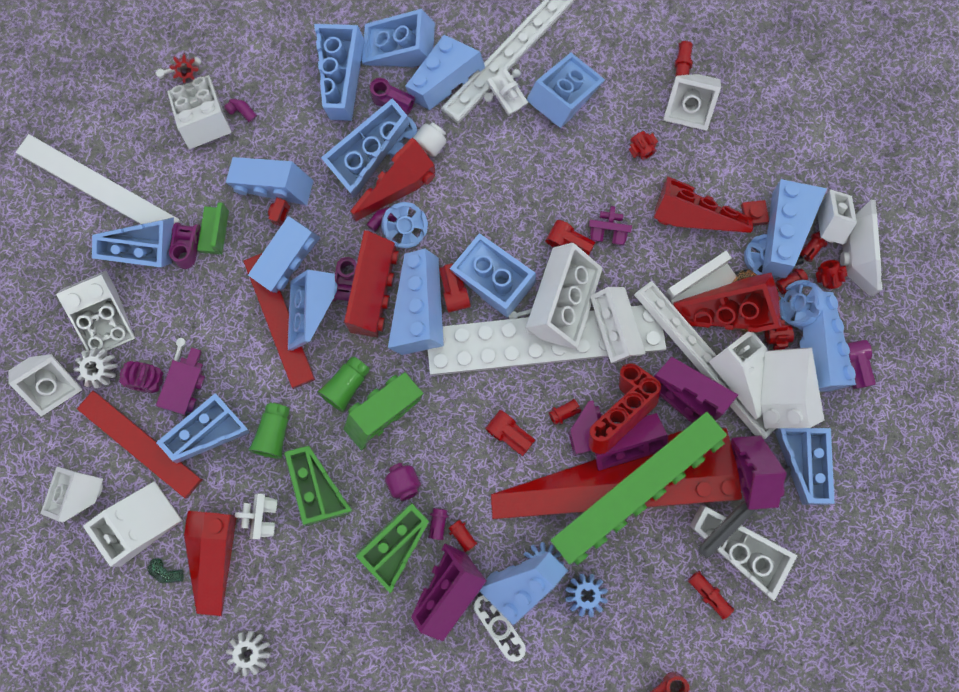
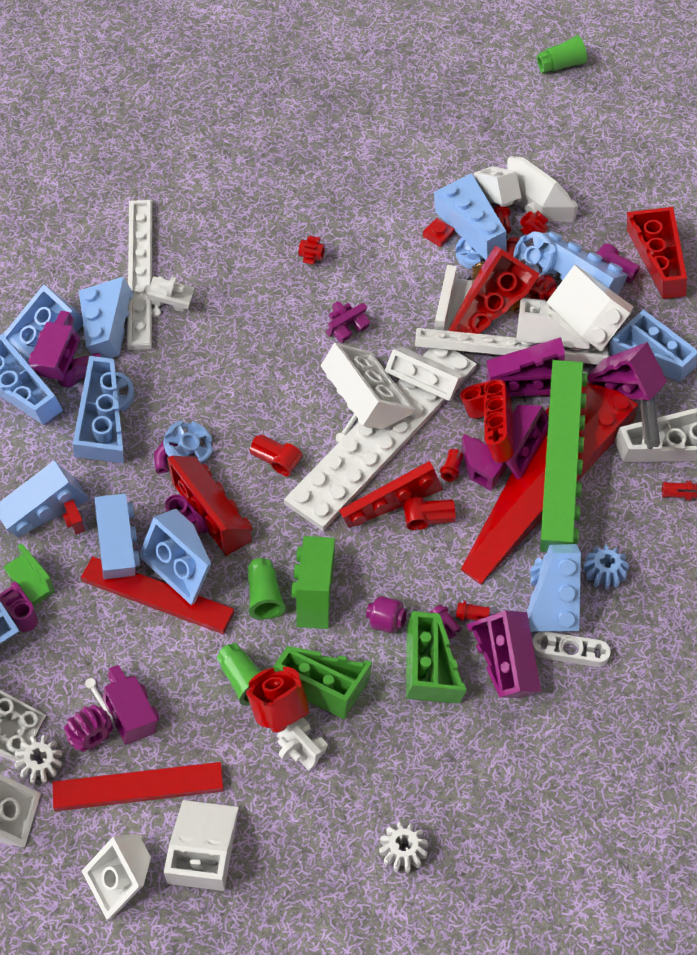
camera: 45 degrees left, 20 degrees down
(161, 574) = (266, 862): clear green arm -> none
(202, 430) = (188, 714): light blue wedge -> none
(209, 554) = (285, 806): red wedge -> none
(262, 478) = (277, 698): none -> red brick
(381, 68) = (55, 348): none -> magenta hinge
(409, 173) = (151, 415): red wedge -> none
(418, 305) = (266, 488): light blue wedge -> none
(431, 139) = (143, 372): white head -> none
(494, 275) = (298, 416): light blue slope -> none
(499, 400) = (417, 483): none -> red wing
(564, 89) = (212, 261): light blue slope -> none
(564, 233) = (316, 351): red piece -> none
(683, 62) = (281, 180): red pin -> none
(684, 208) = (384, 266): red wedge -> none
(693, 100) = (316, 196): white slope -> none
(907, 385) = (660, 249): none -> red wedge

